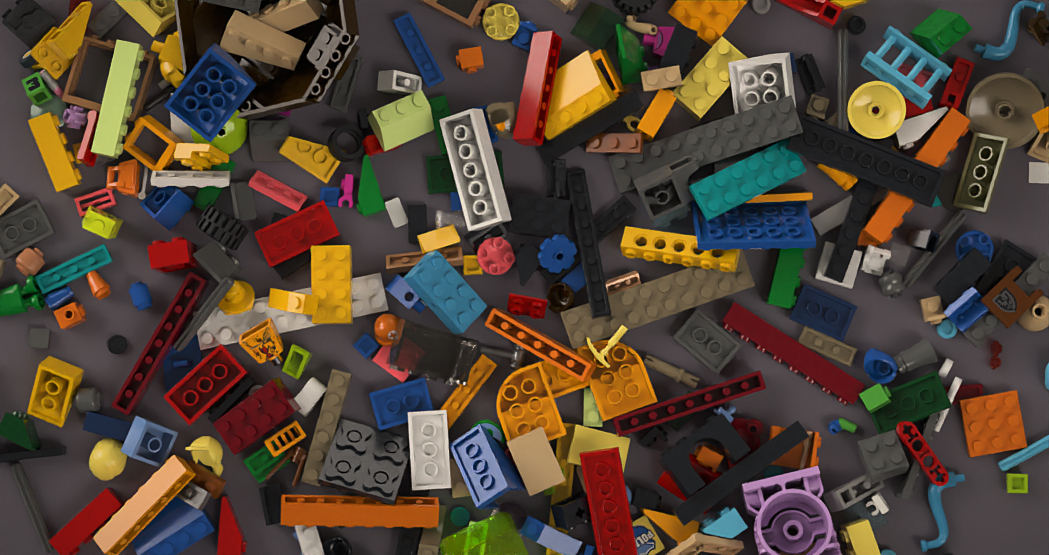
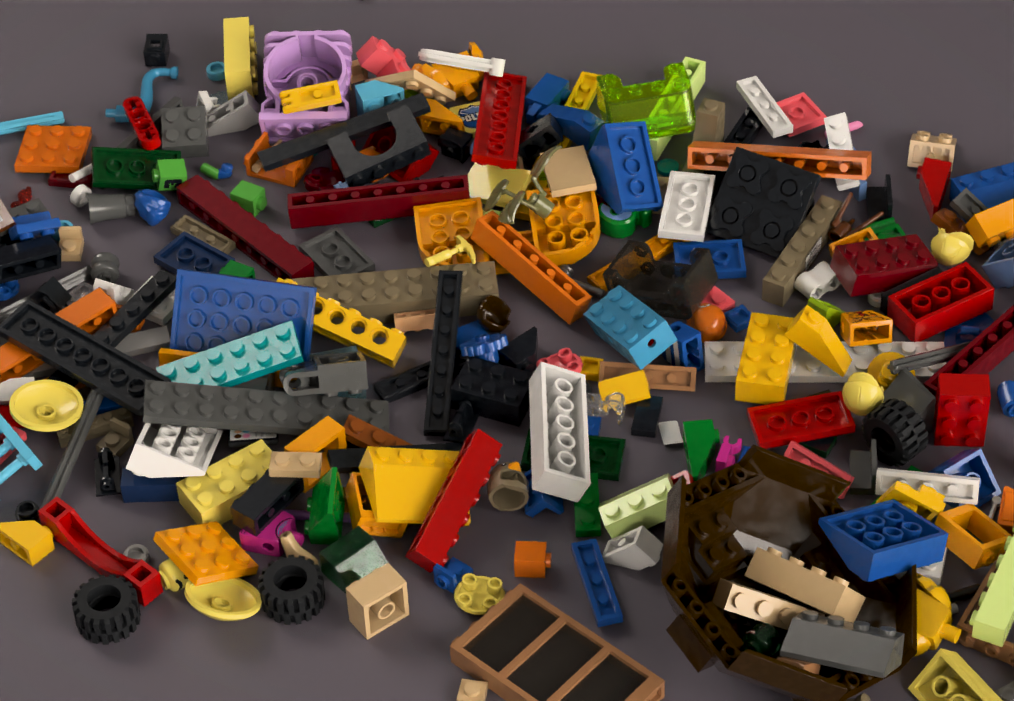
camera: 165 degrees left, 40 degrees down
(249, 253) = (862, 393): none -> light yellow piece
(526, 306) = (535, 313): red hinge -> none
(550, 429) = (536, 202): none -> olive plant
(671, 371) = (381, 236): dark tan pin -> none
(777, 491) = (310, 97): none -> yellow hinge
(801, 393) = (249, 197): none -> bright green brick
(1017, 483) = (52, 101): lime plate -> none

